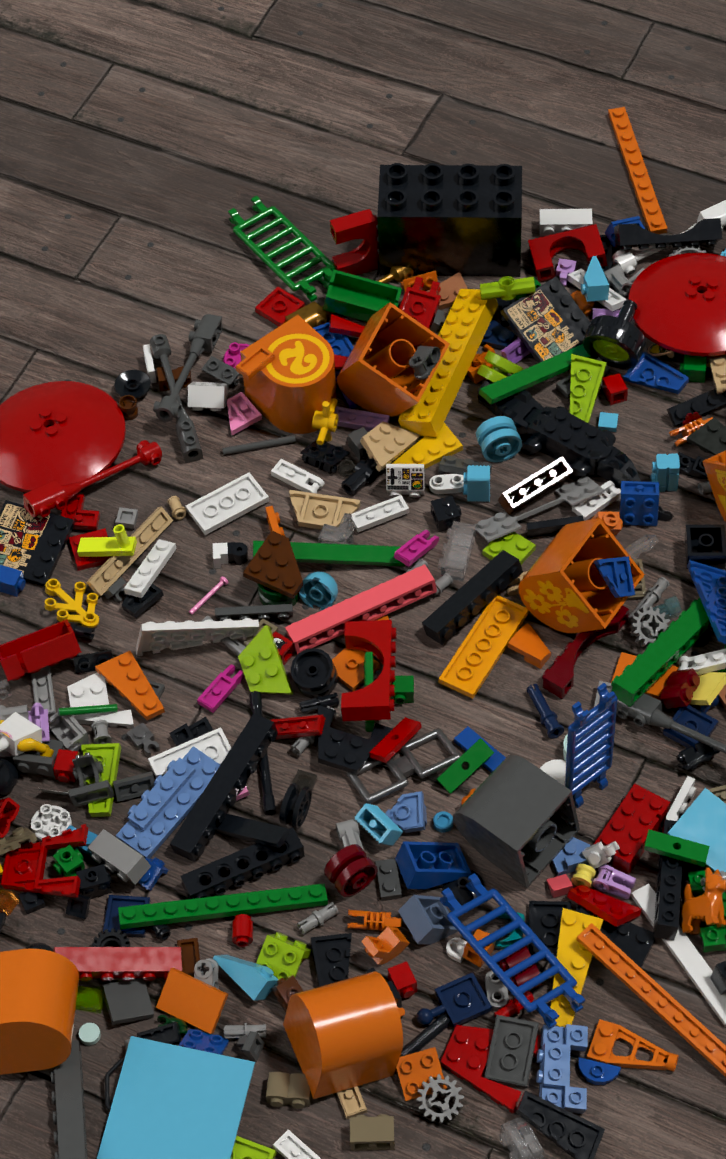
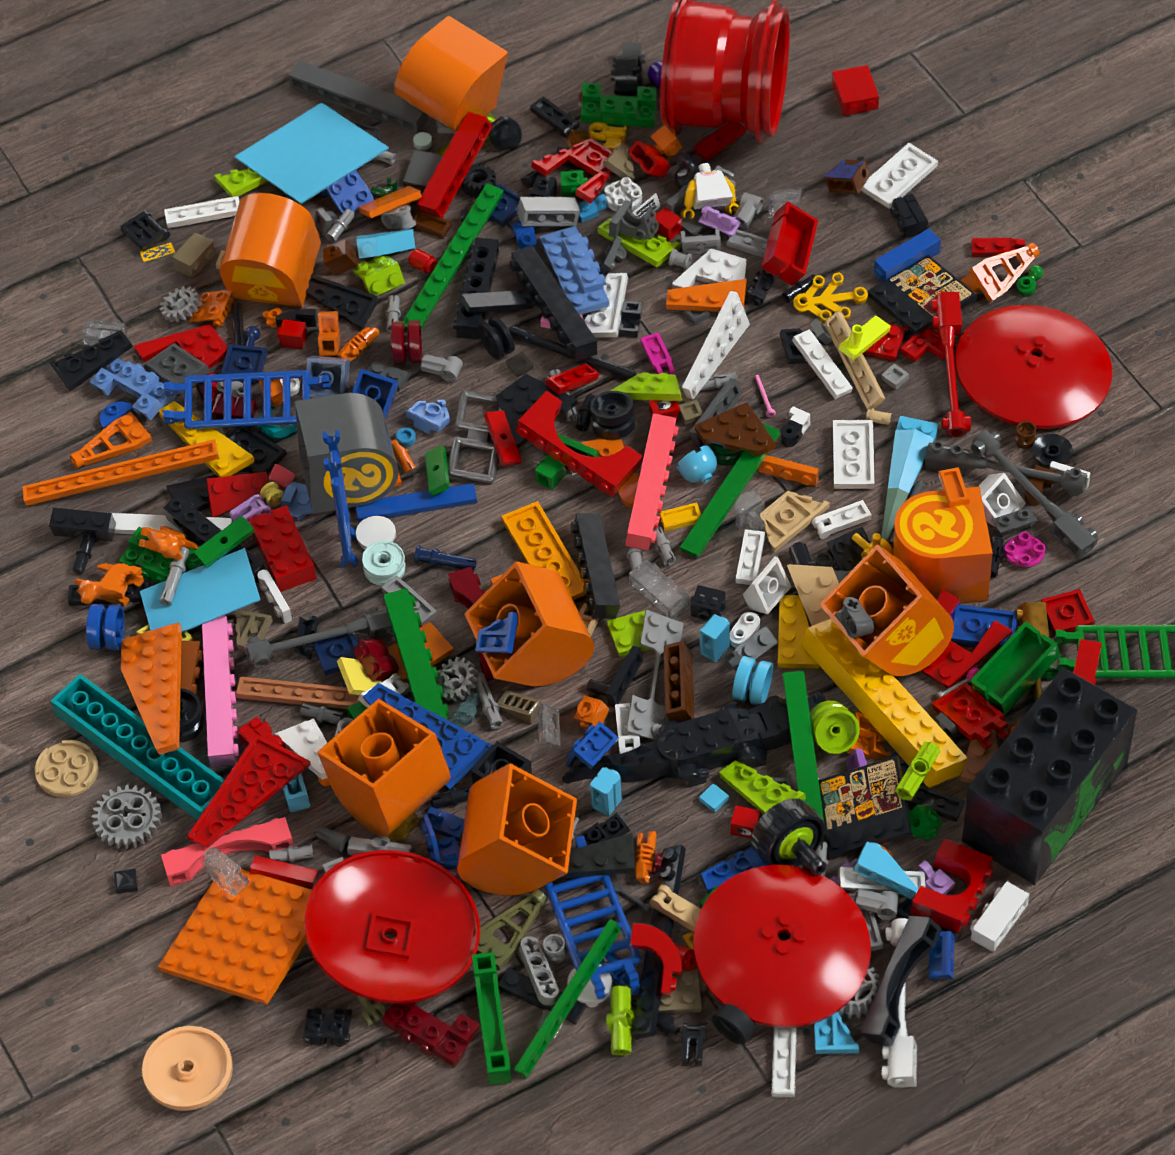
camera: 125 degrees right, 0 degrees up
(87, 710) = (704, 253): green bar -> none
(143, 737) = (655, 286): flat silver plate -> none
(167, 1034) = (379, 173): black plate -> none
(192, 472) = (907, 461): none -> medium azure plate
(368, 578) = (679, 516): none -> yellow tile
(378, 824) = (434, 385): medium azure brick -> none
(416, 548) = (685, 557): dark pink hinge -> none
(599, 854) = (273, 502): white plate -> none
(637, 171) = (1034, 1038): orange plate -> none

